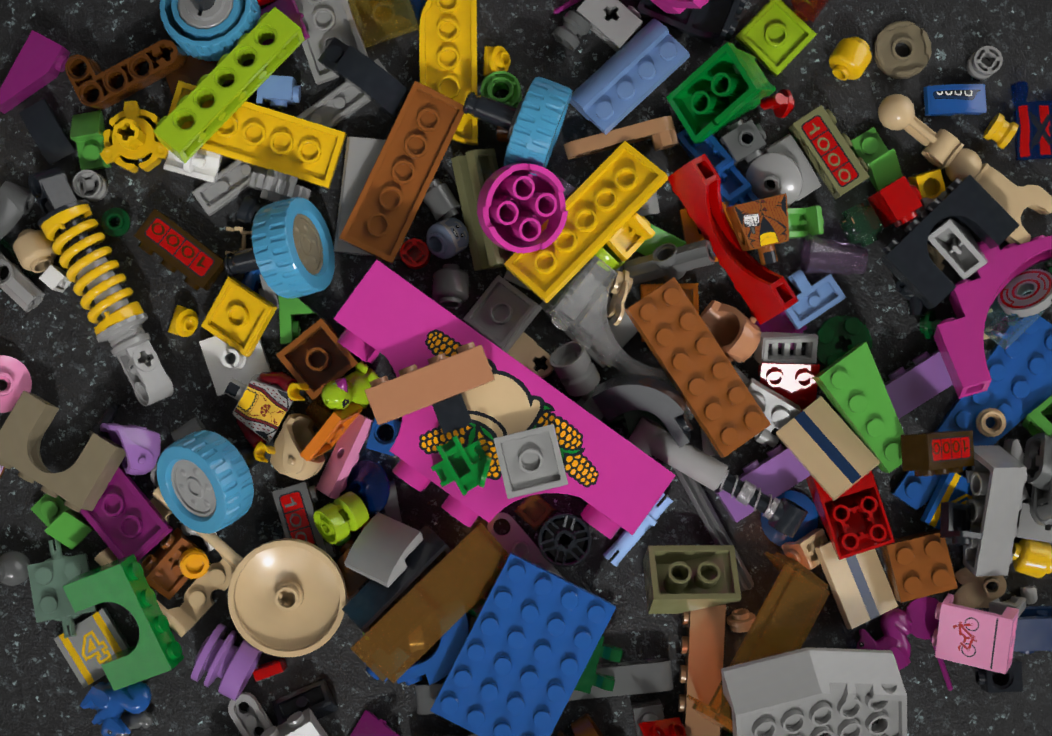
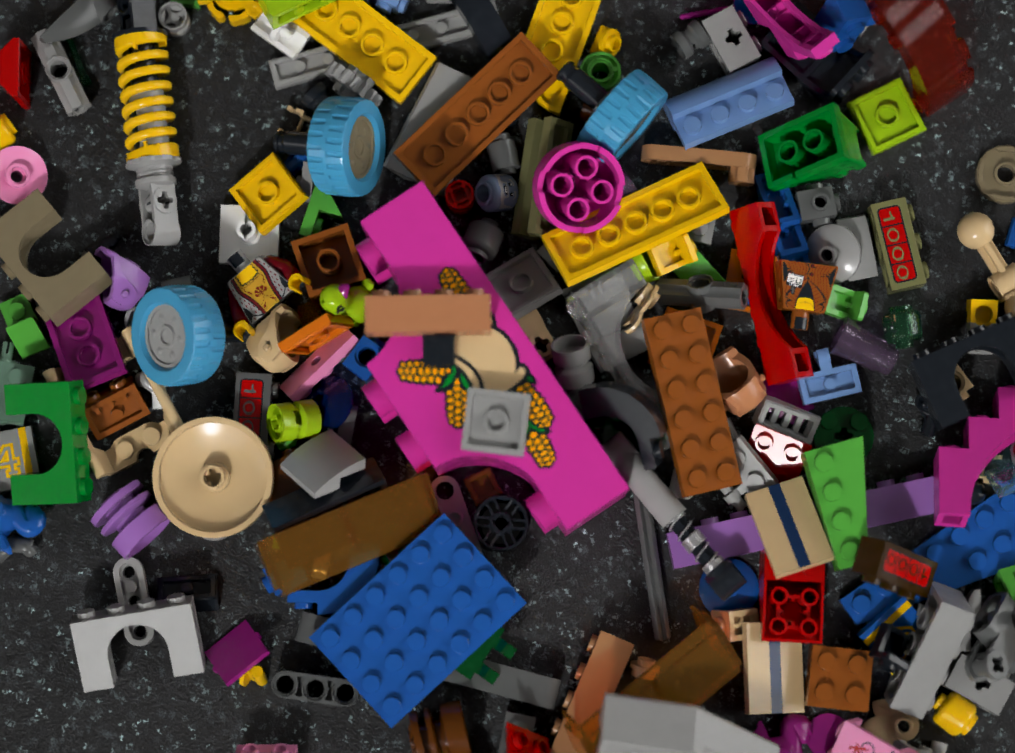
camera: 25 degrees right, 5 degrees down
(34, 250) = (97, 61): tan head -> none
(55, 278) = (108, 94): white piece -> none
(122, 228) = (189, 70): dark green plate -> none
(179, 250) = (236, 111): brick -> none
(183, 322) = (213, 180): yellow plate -> none
(194, 563) = (135, 413): light orange tile -> none
(269, 669) = (168, 543): red tile -> none
(464, 461) = (433, 401): green piece -> none
(627, 541) = (577, 540): light blue pin -> none
(690, 577) = (609, 604): olive slope -> none
(780, 102) = (868, 181): red plate -> none
(850, 58) = (950, 164): yellow head -> none
(881, 162) = (944, 273): bright green slope -> none
(896, 202) = (943, 316): red brick -> none
(929, 323) = (932, 446): dark green plate -> none
(958, 247) = (987, 380): light grey slope -> none
(1000, 422) = (967, 558): tan plate -> none

